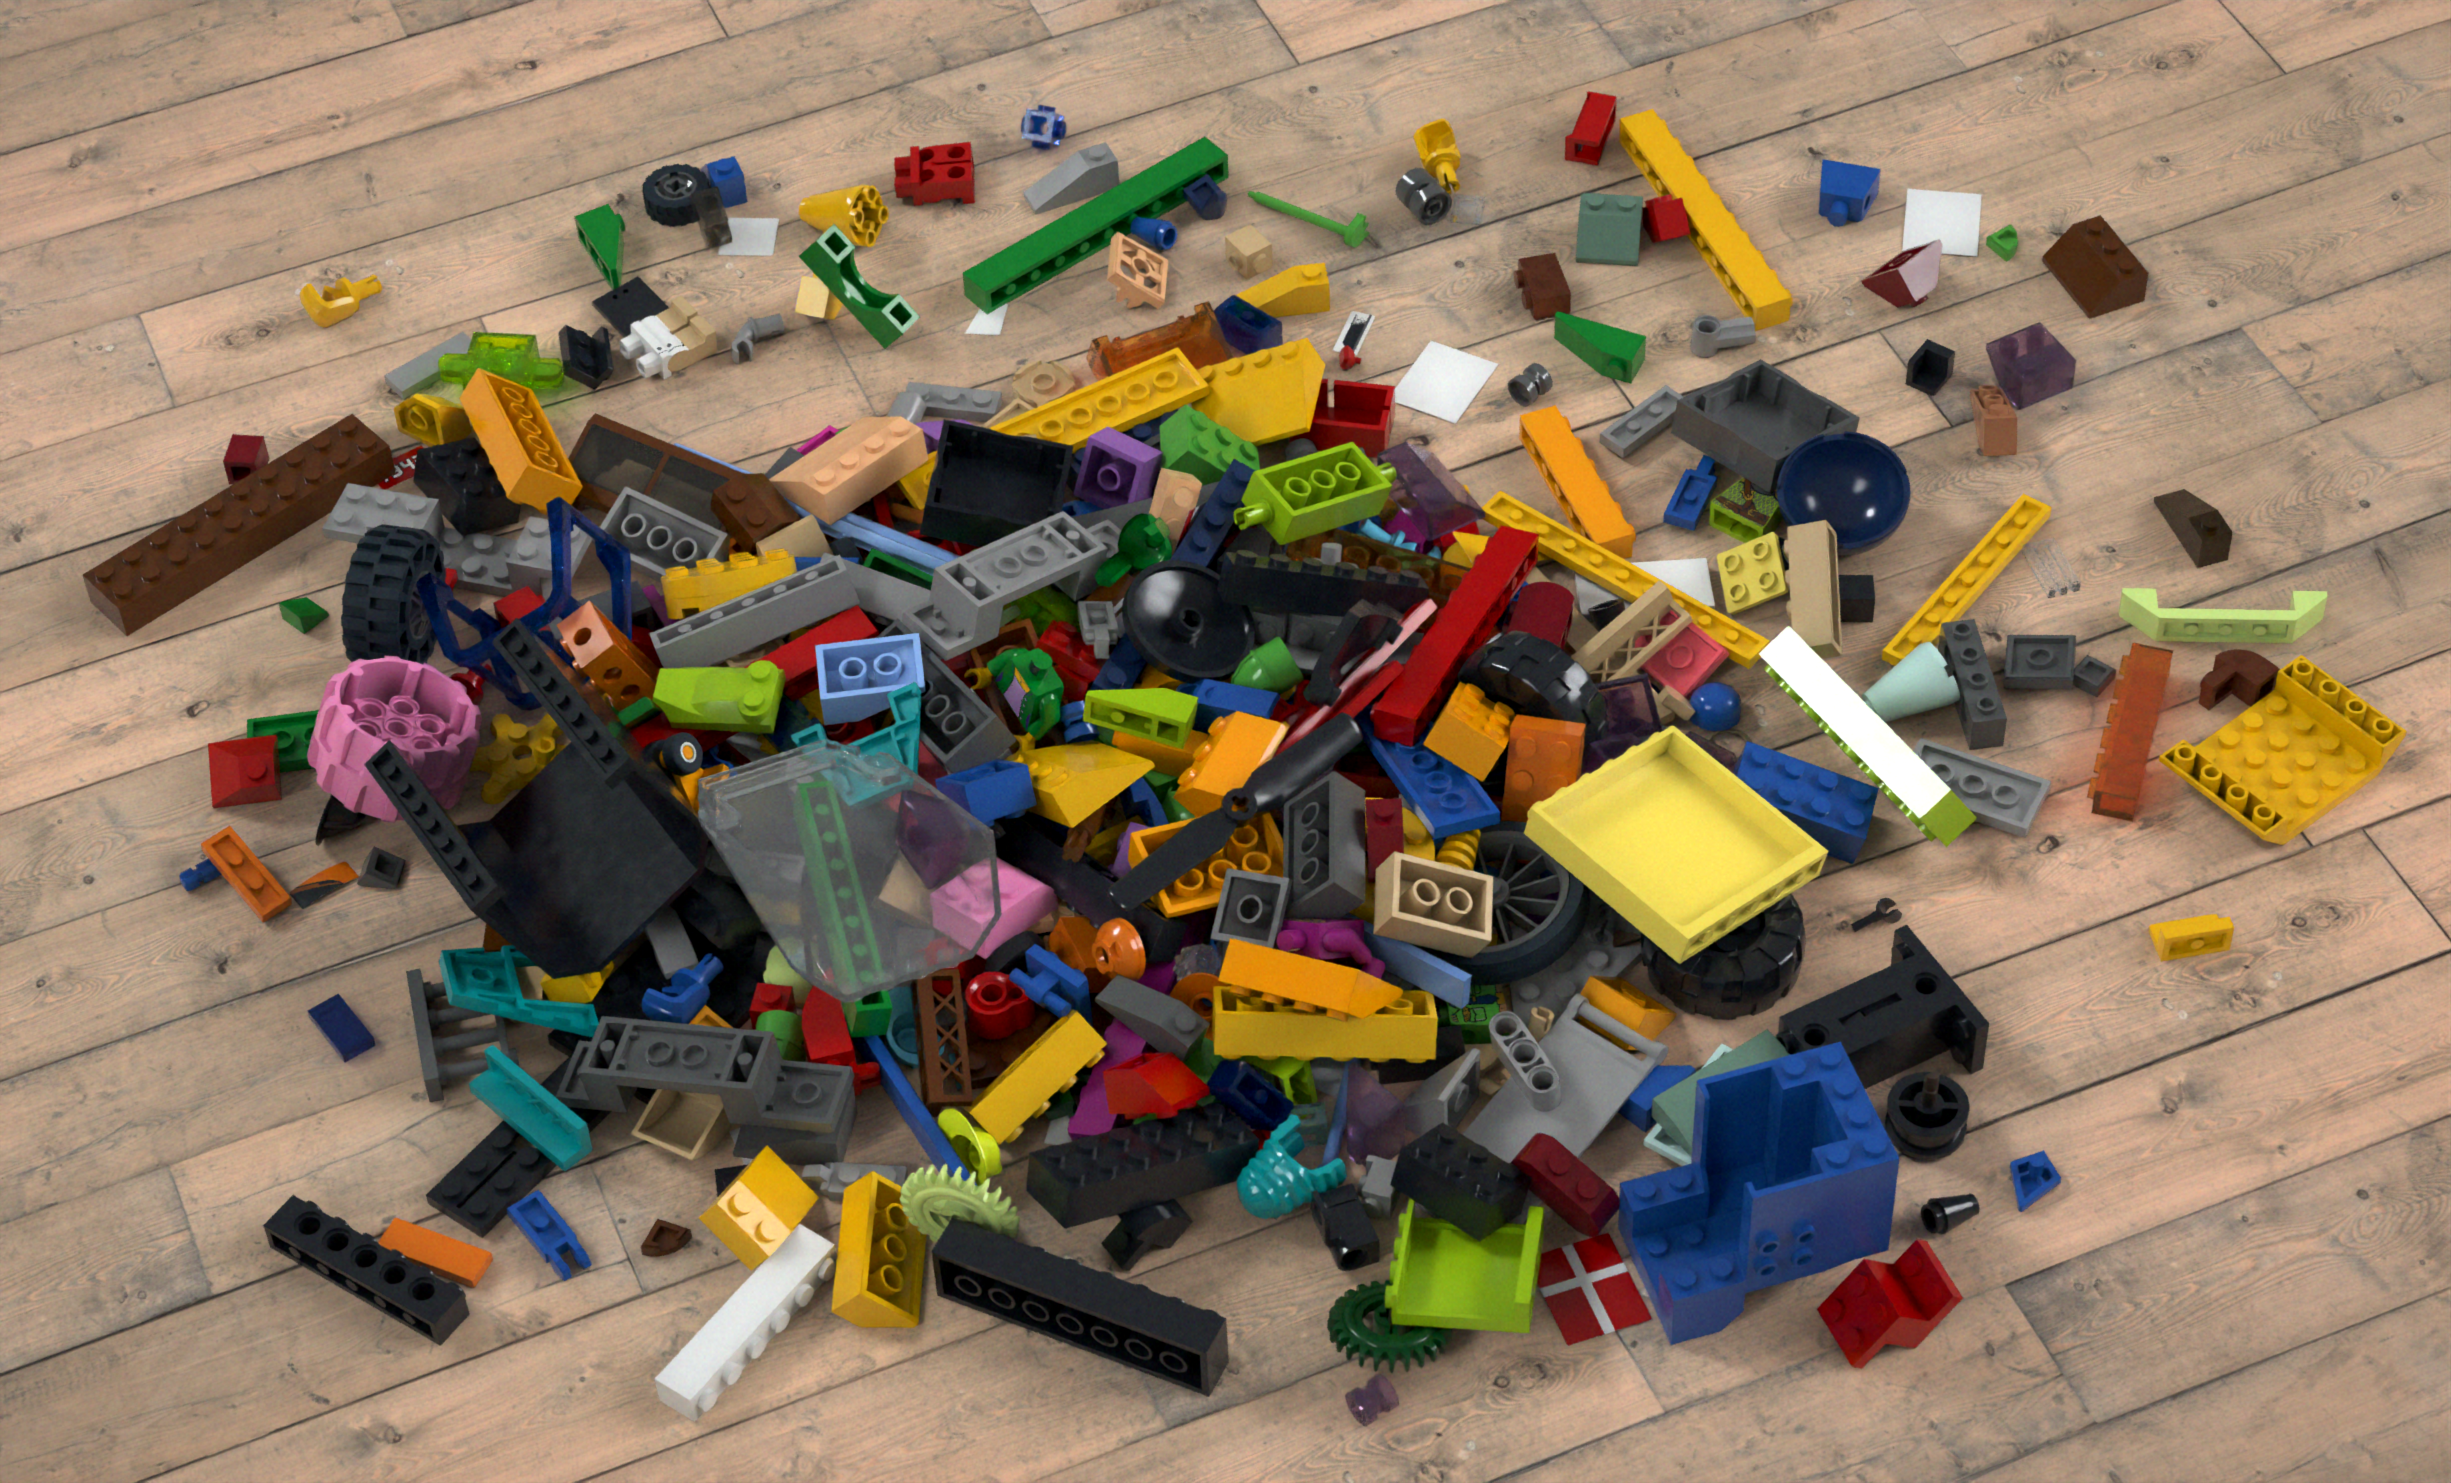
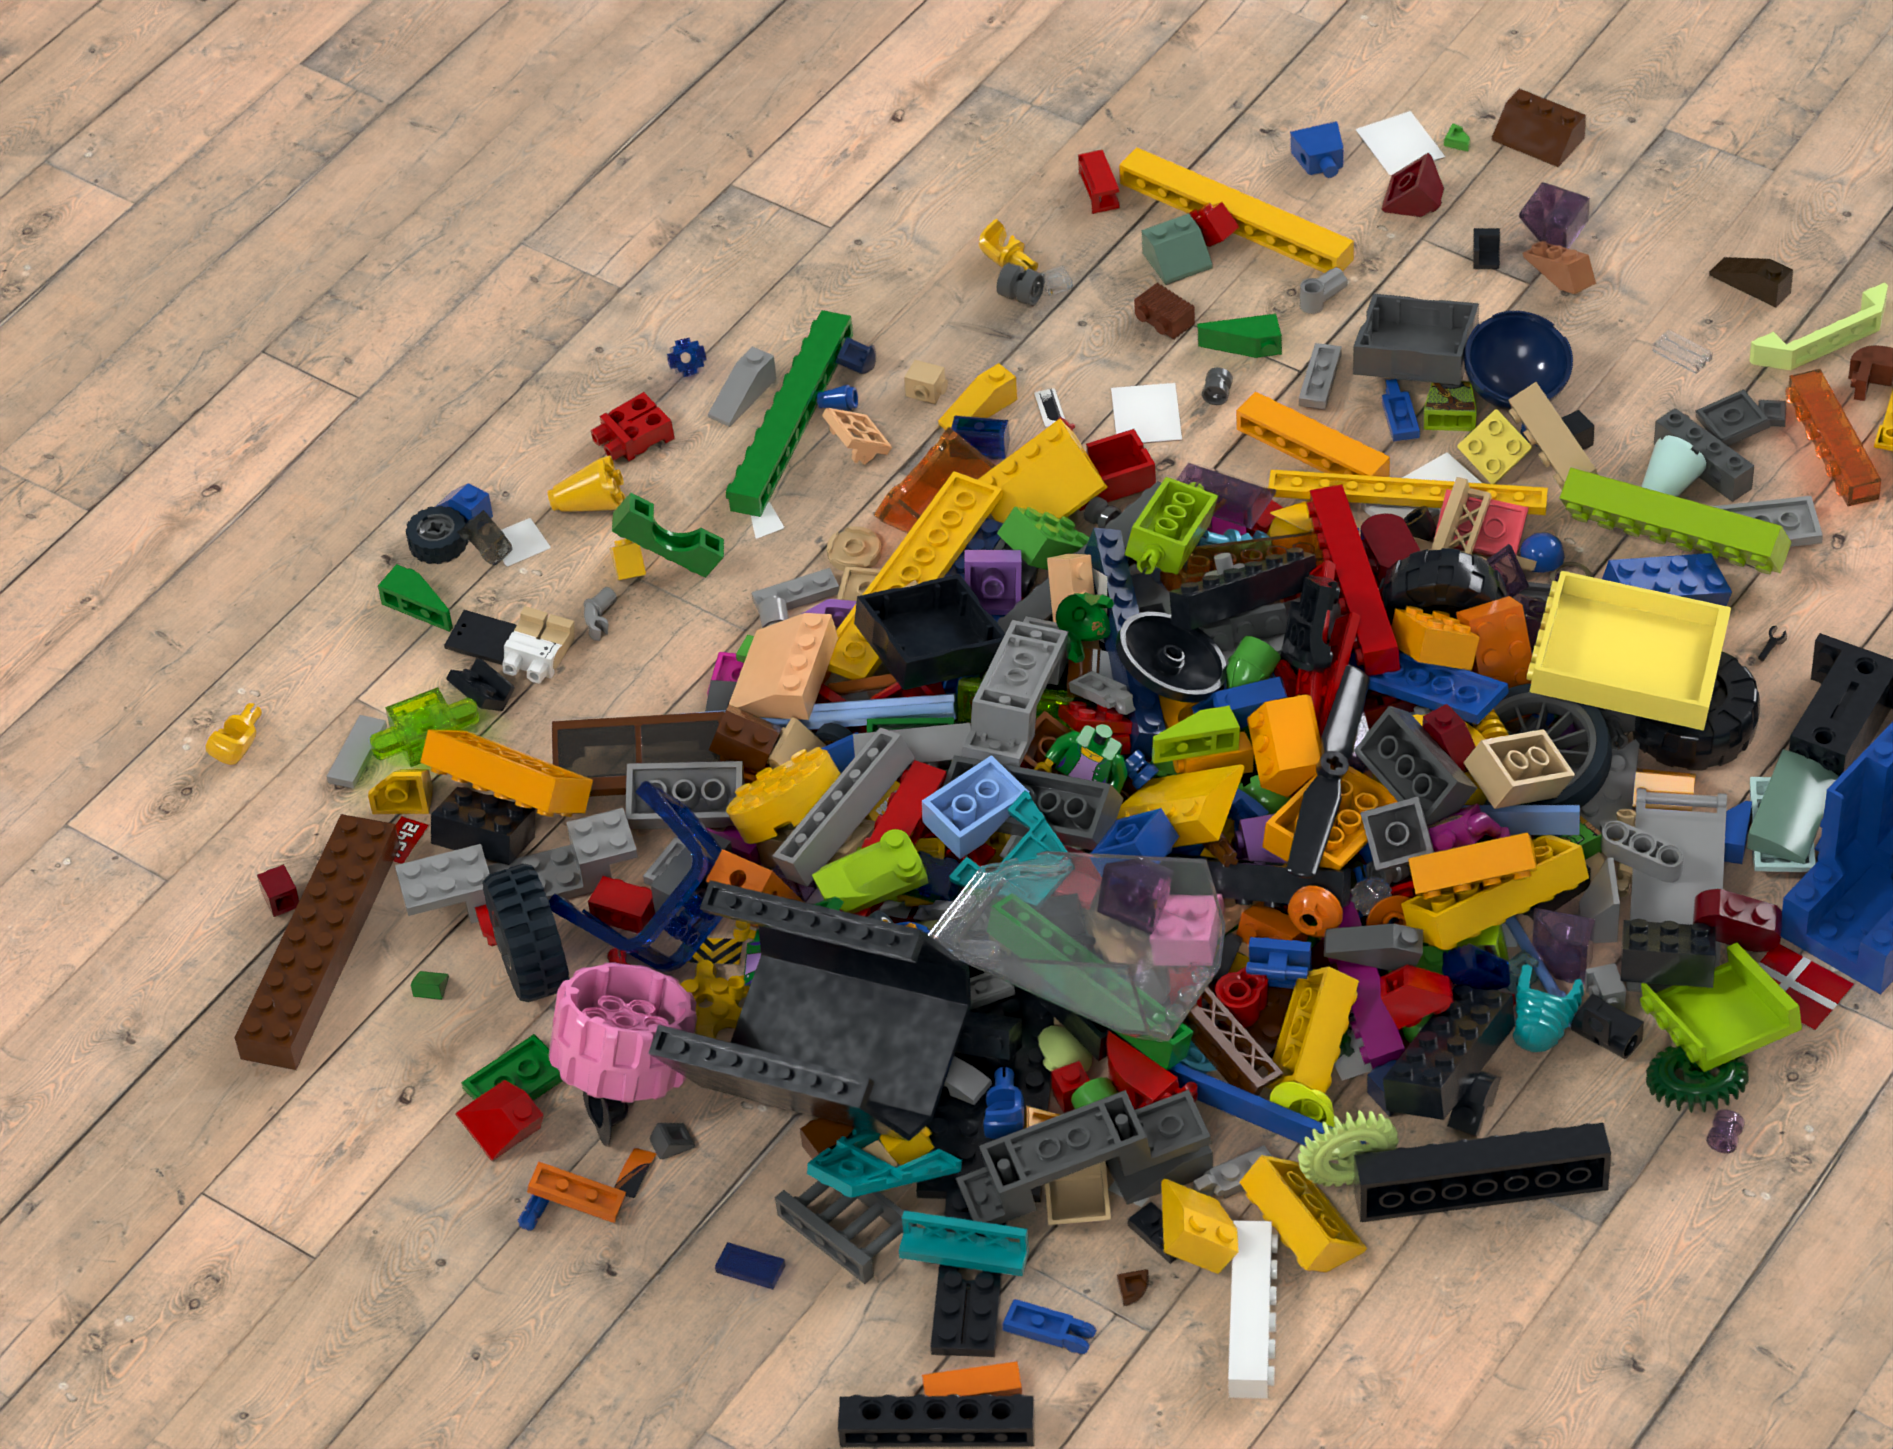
camera: 30 degrees left, 0 degrees up
(1353, 233) = (988, 335): bright green piece -> none
(1970, 577) = (1638, 387): yellow plate -> none

